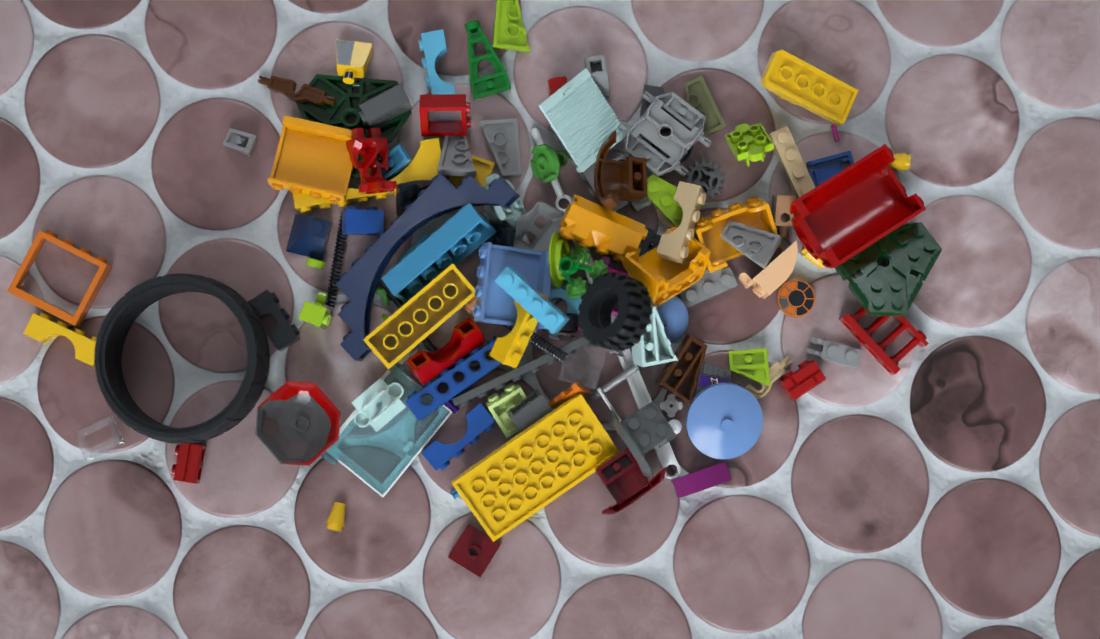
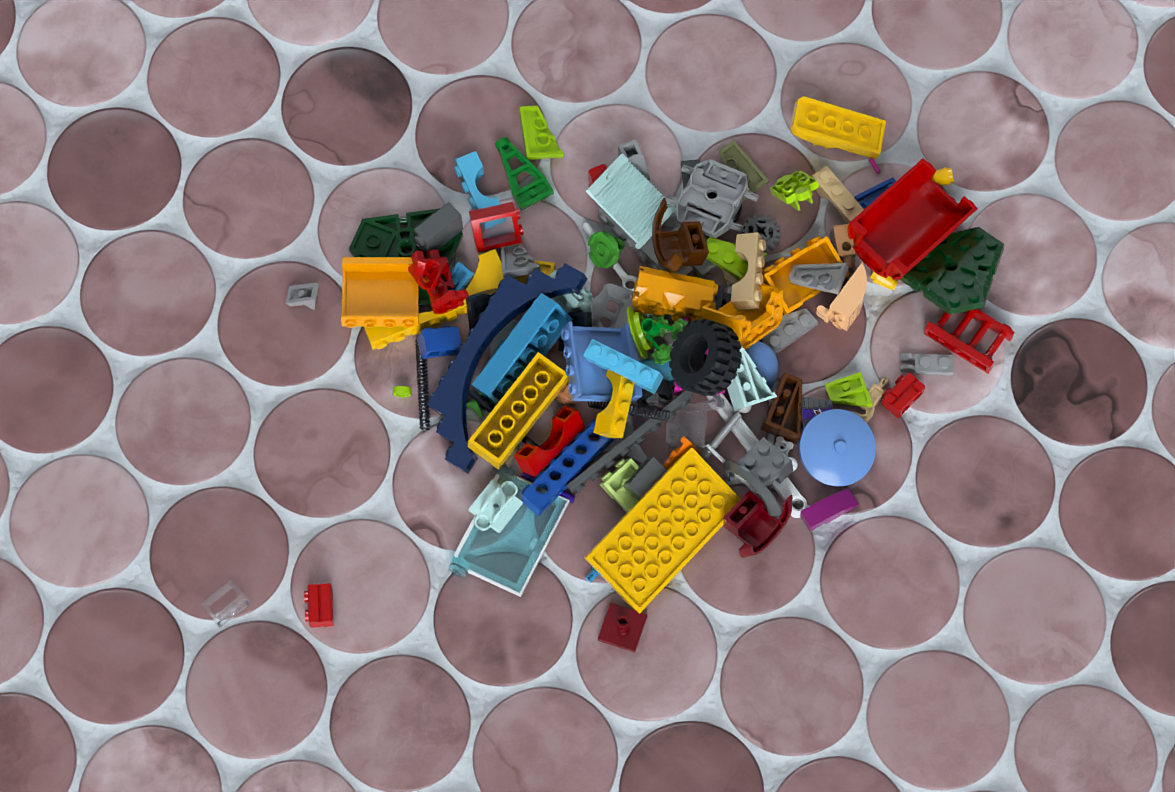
camera: 10 degrees left, 15 degrees down
(44, 329) = (147, 511): yellow arch -> none
(90, 295) = (147, 489): orange window -> none
(113, 335) = (276, 434): black tyre -> none
(284, 333) = (363, 441): black arch -> none
(298, 423) = (421, 537): dark grey rock -> none
(306, 92) = (356, 238): reddish brown piece -> none
(309, 236) = (389, 368): dark blue slope -> none
(315, 313) = (414, 435): lime brick -> none
(336, 518) = (478, 626): yellow cone -> none
(353, 59) = (395, 197): yellow torso -> none
(439, 454) = (566, 541): blue arch -> none
(504, 143) = (558, 242): light grey wing -> none
(796, 298) = (877, 322): tile -> none

